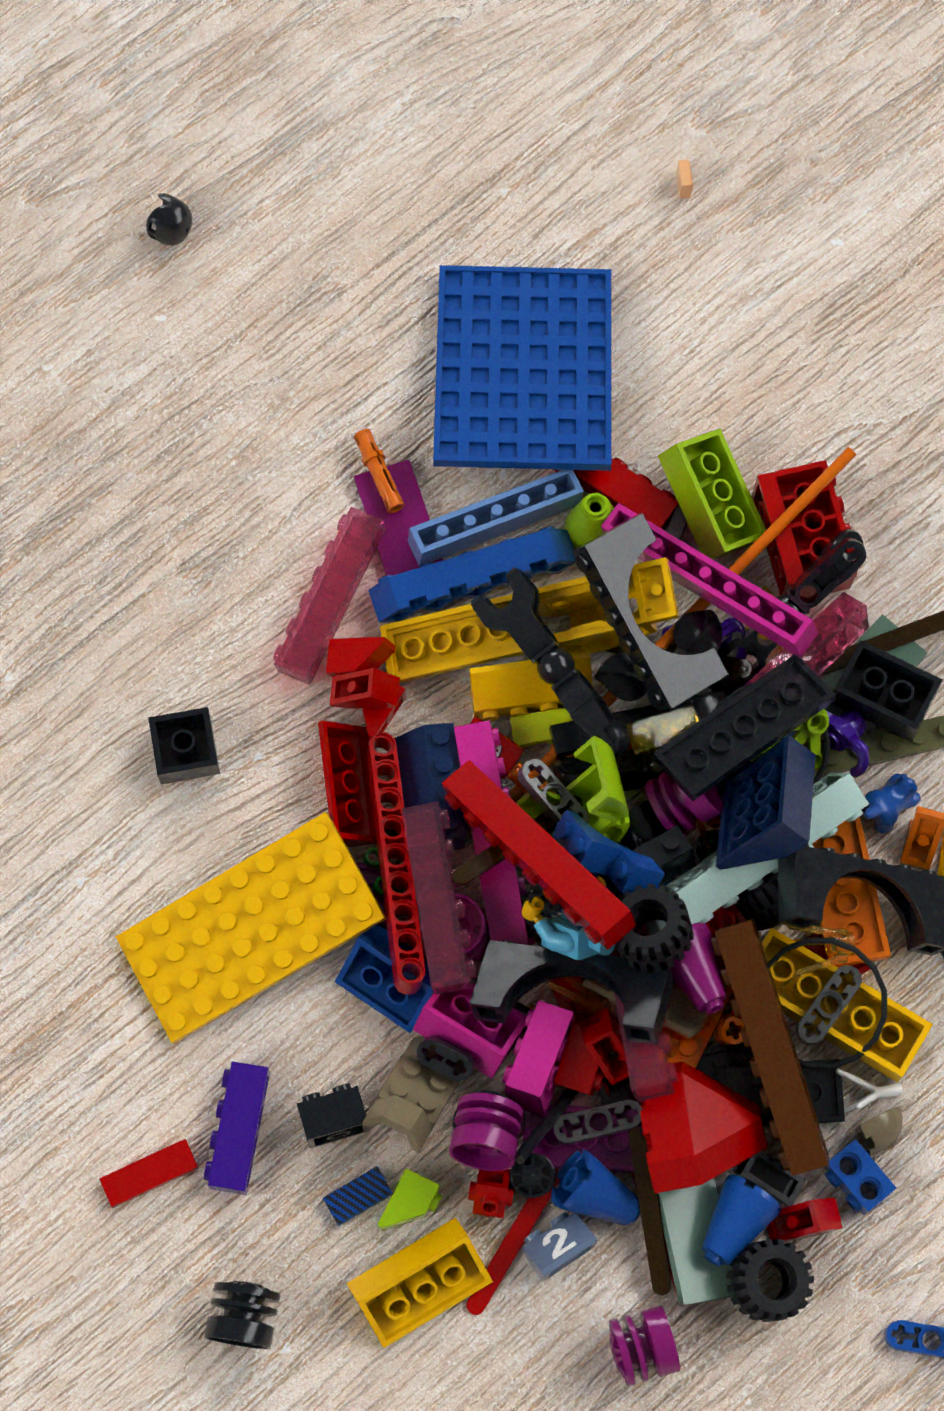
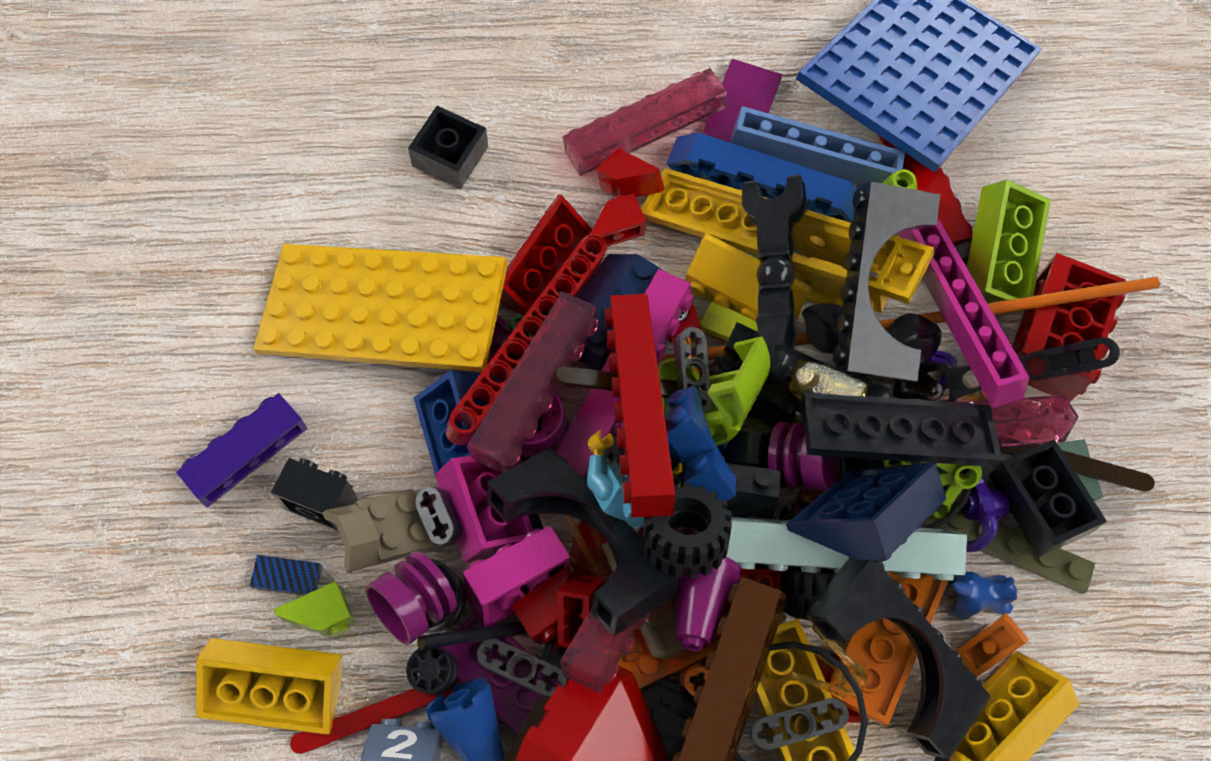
camera: 35 degrees right, 5 degrees down
(148, 1173) = (150, 432): red tile -> none
(242, 1315) = (100, 602): black wheel -> none
(365, 690) = (613, 197): red slope -> none
(374, 461) = (754, 55): orange pin -> none
(491, 1193) = (386, 658): red brick -> none
(684, 178) = (1147, 26): light nougat tile -> none

